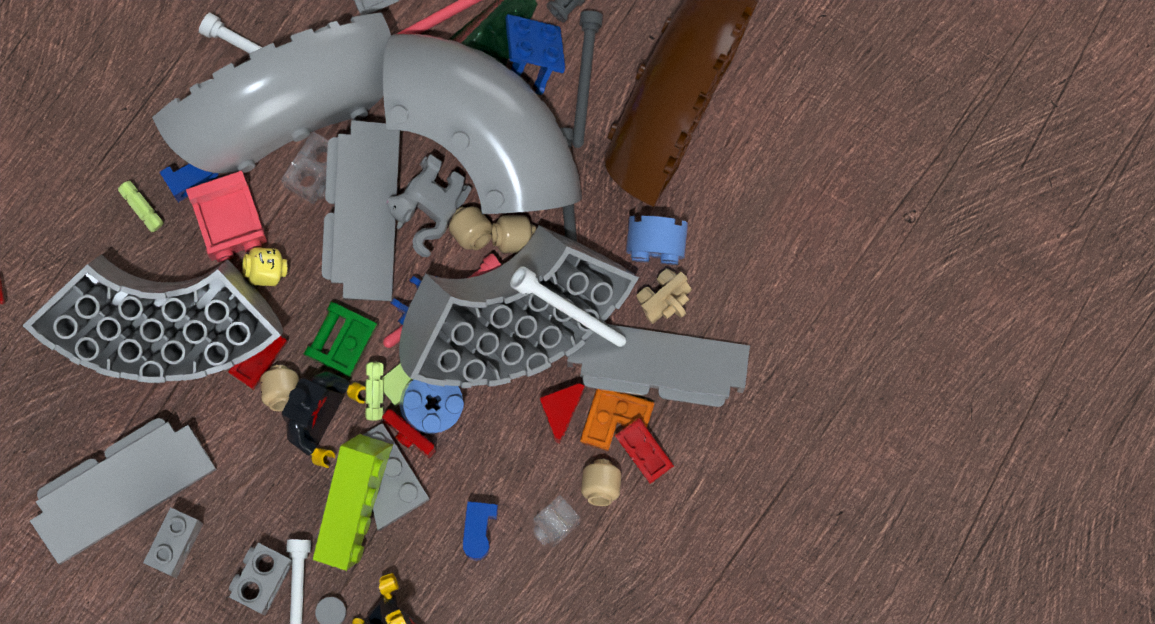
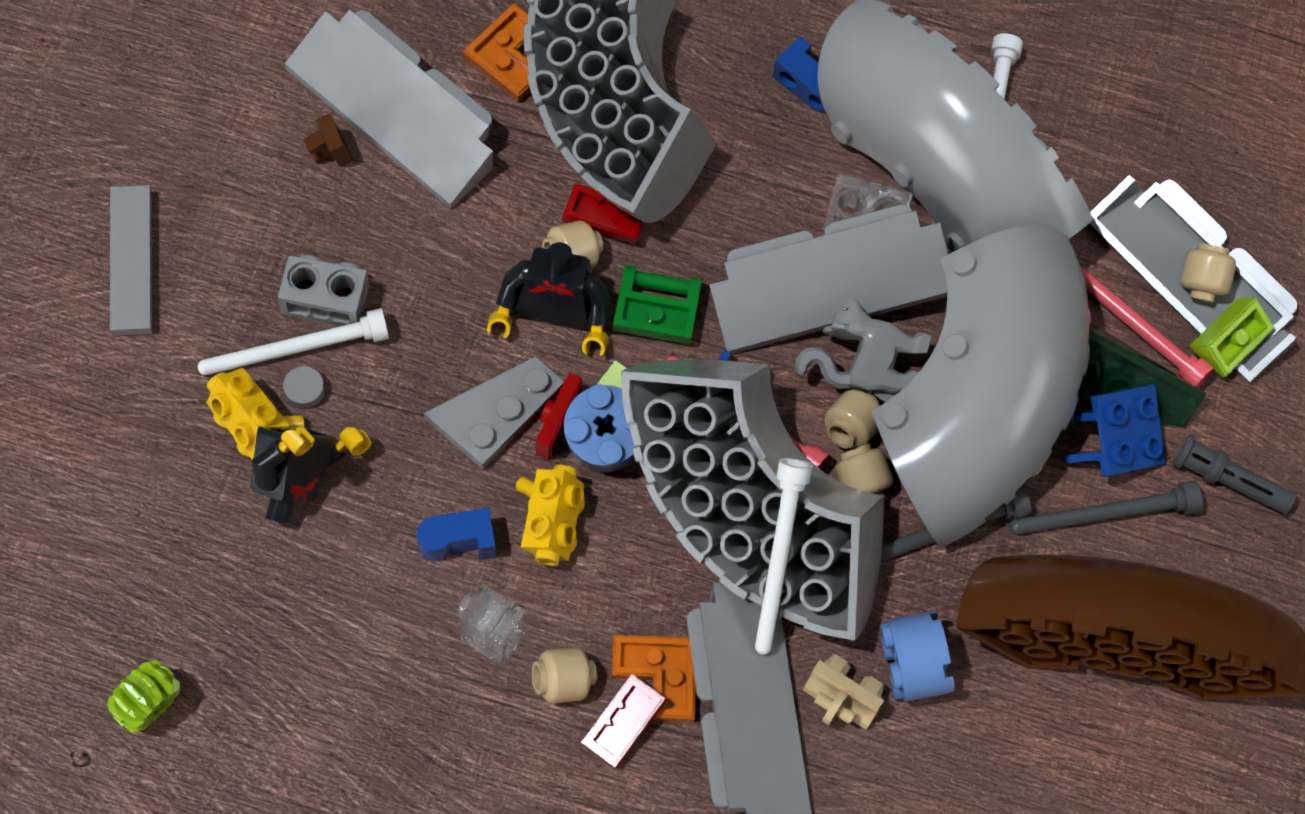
camera: 70 degrees right, 10 degrees down
(99, 400) = (498, 53): none -> orange tile
(138, 544) = (328, 142): none -> reddish brown tile
(140, 206) = (752, 34): yellowish green axle -> none
(173, 543) = (341, 178): light grey brick -> none
(227, 216) = (773, 132): coral panel -> none
(264, 266) = (720, 187): light yellow head -> none
(351, 501) = (452, 364): lime wedge -> none
(374, 391) = (603, 358): yellowish green axle -> none
(482, 458) = (552, 513): none -> yellow brick
(560, 408) = (647, 597): red slope -> none

